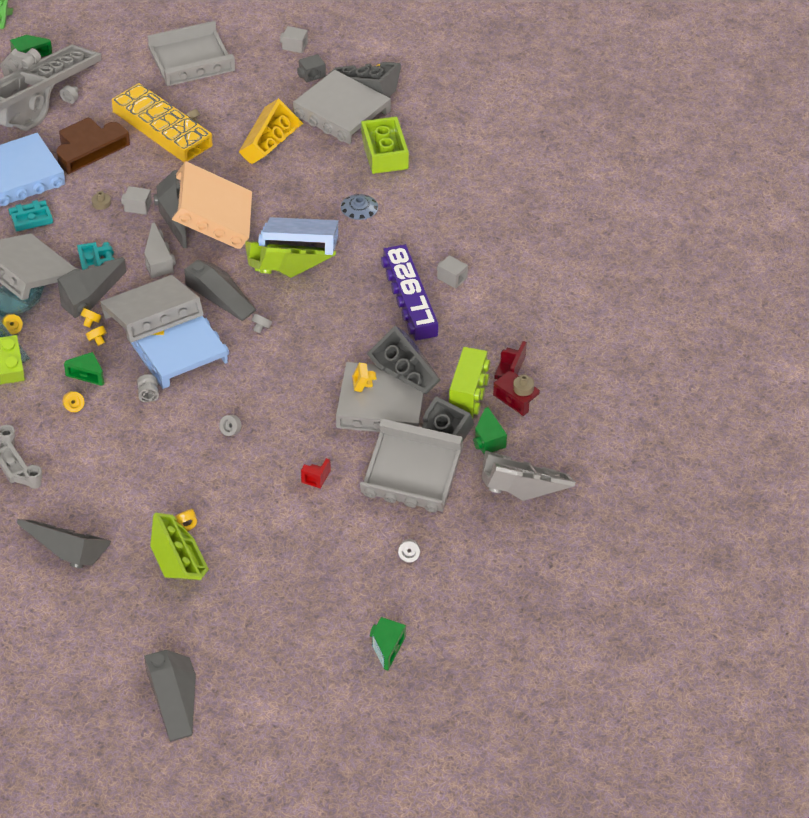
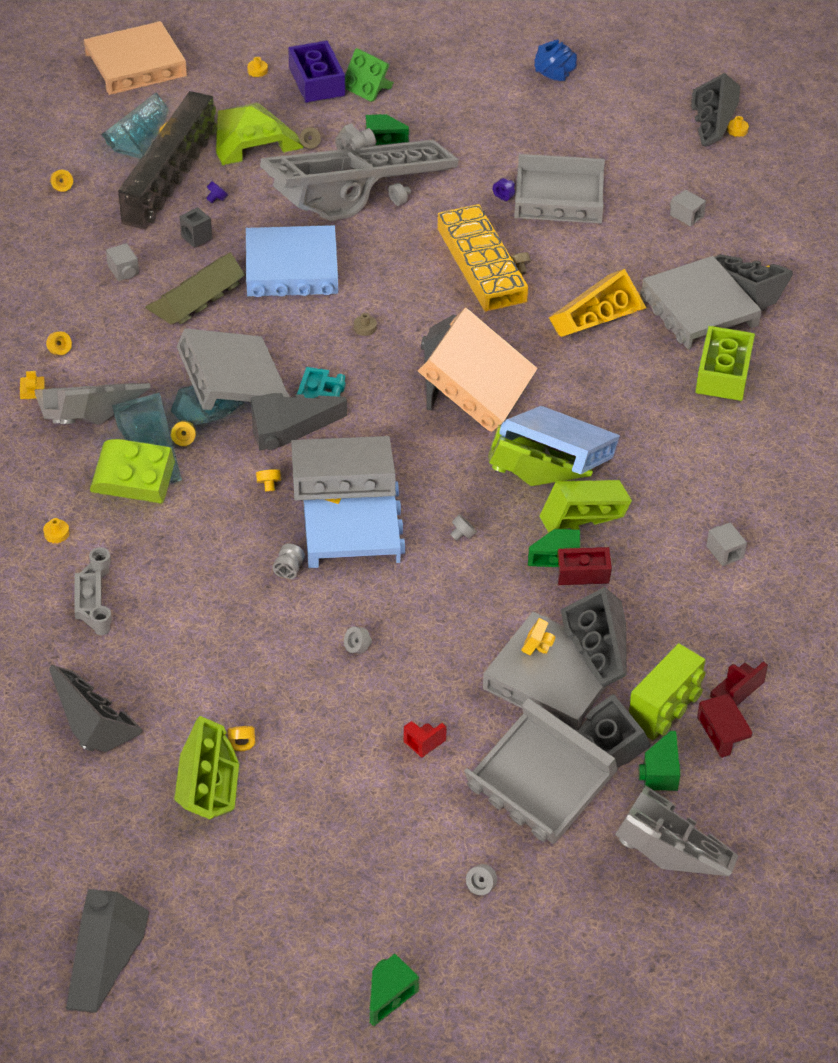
camera: 25 degrees right, 0 degrees up
(30, 215) = (277, 316): teal plate -> none
(77, 401) = (192, 551): yellow tile -> none
(85, 369) = (232, 513): green slope -> none
(88, 143) = (387, 254): reddish brown brick -> none
(90, 317) = (274, 454): yellow tile -> none
(136, 200) = (403, 337): light grey brick -> none
(149, 66) = (504, 189): none -> dark purple tile
(157, 254) = (388, 406): light grey slope -> none
(218, 288) = (439, 469): dark grey wedge -> none
(311, 68) = (689, 246): dark grey brick -> none
(337, 276) = (584, 502): none -> lime wedge
(337, 314) = (544, 551): none -> green slope
(359, 206) = (659, 427): sand blue dish -> none
(364, 319) = (584, 566): none -> dark red panel
(410, 292) = (660, 554): dark purple brick -> none
(523, 385) = (733, 719): dark tan tile -> none

